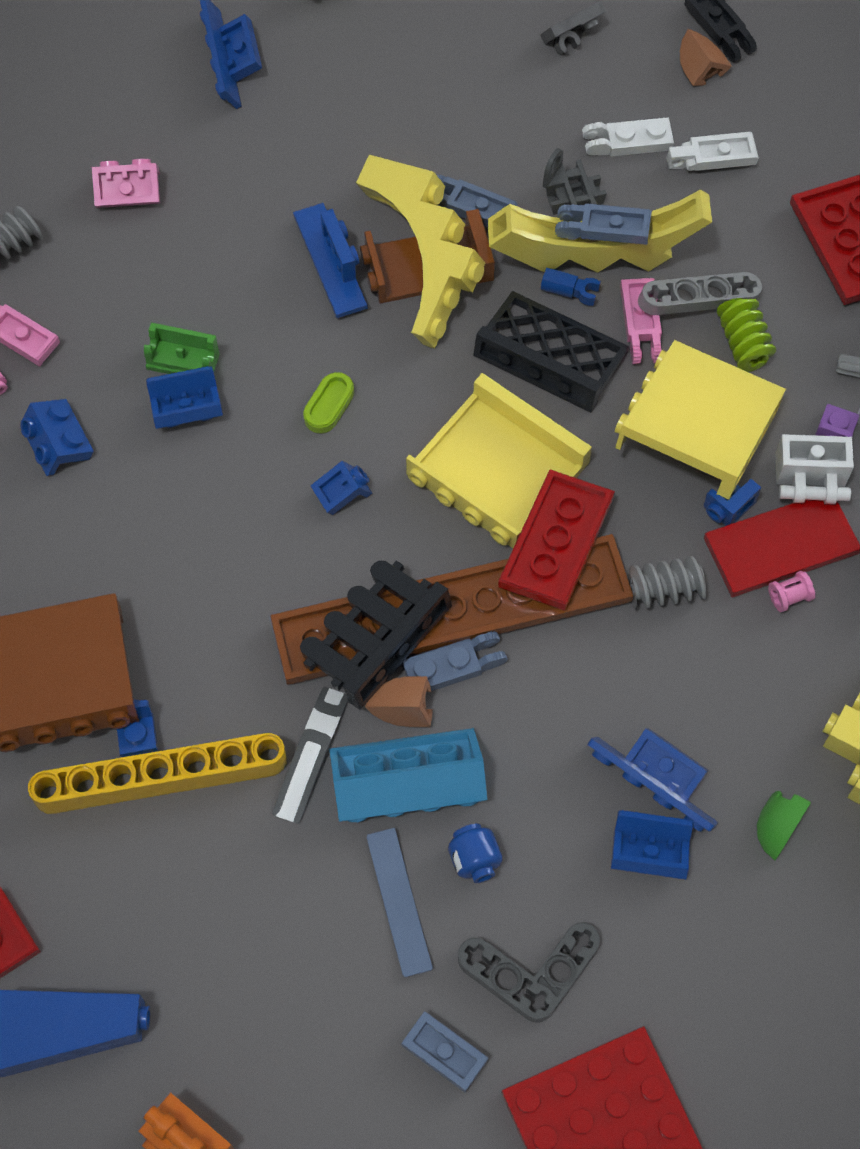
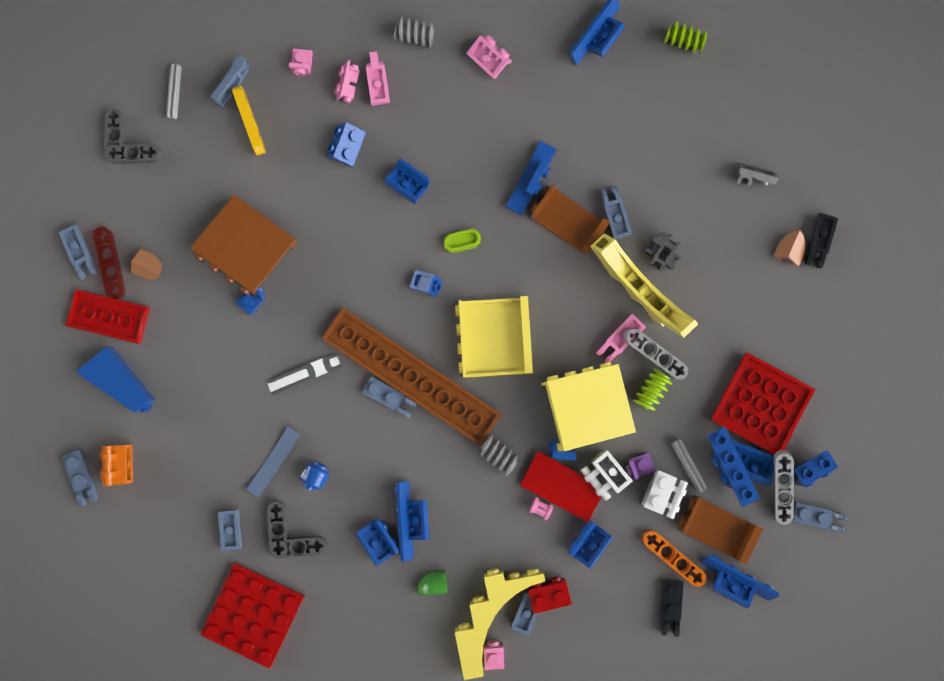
camera: 55 degrees right, 20 degrees up
(142, 765) = (233, 320): yellow beam -> none
(179, 349) = (428, 159): bright green hinge -> none
(390, 645) = (361, 370): black fence -> none
(402, 702) = (353, 392): nougat brick -> none
(408, 775) = (324, 420): dark azure slope -> none
(446, 264) = (580, 215): light yellow arch -> none
(539, 366) = (555, 311): black fence -> none
(556, 539) = (477, 393): red tile -> none
(570, 286) = (610, 292): blue bar -> none
(604, 223) = (645, 289): sand blue hinge -> none
(628, 137) = (717, 252): white hinge -> none
(714, 152) = (741, 298): white hinge -> none

